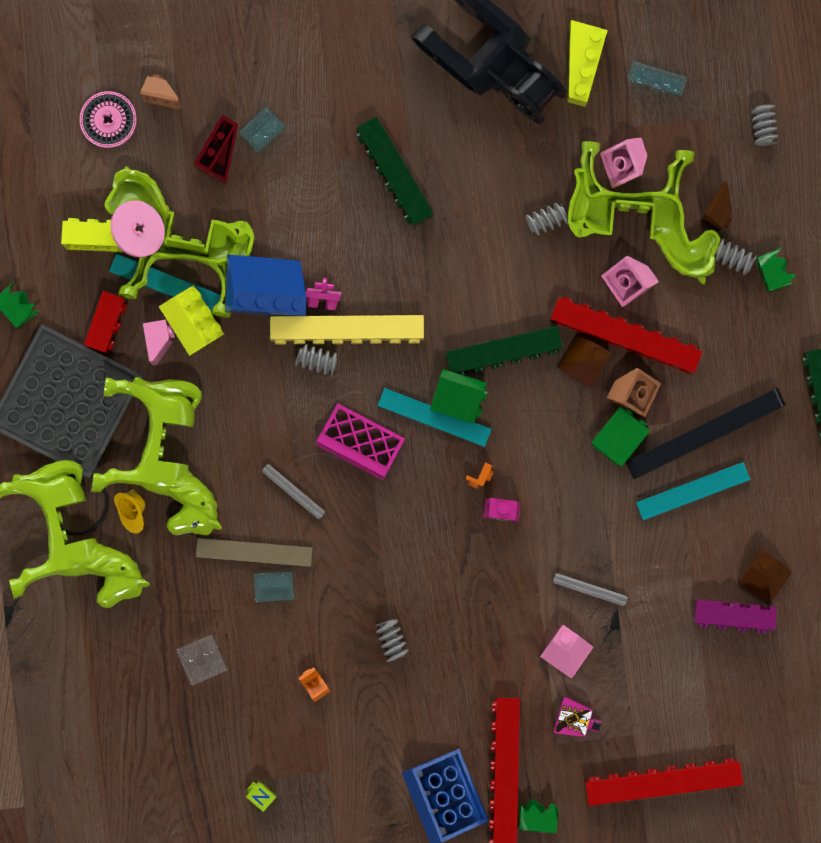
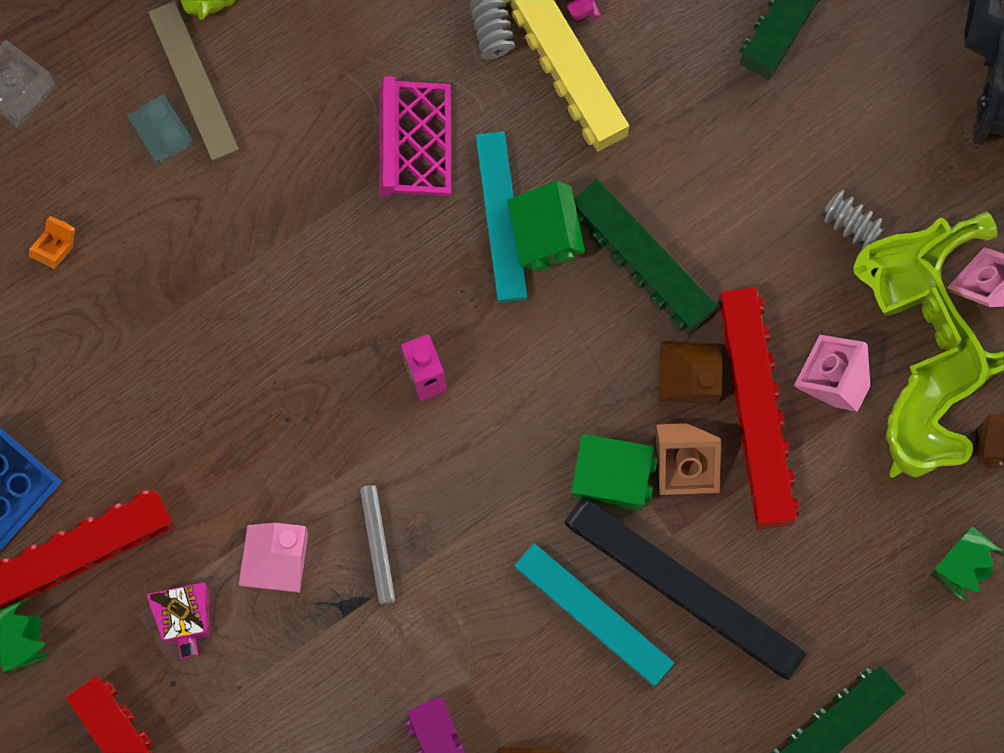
camera: 60 degrees right, 10 degrees down
(293, 491) = (301, 89): light grey axle -> none
(392, 640) = (165, 312): light grey piece -> none
(485, 474) = (457, 318): orange bracket -> none
(734, 257) = (951, 499): light grey piece -> none

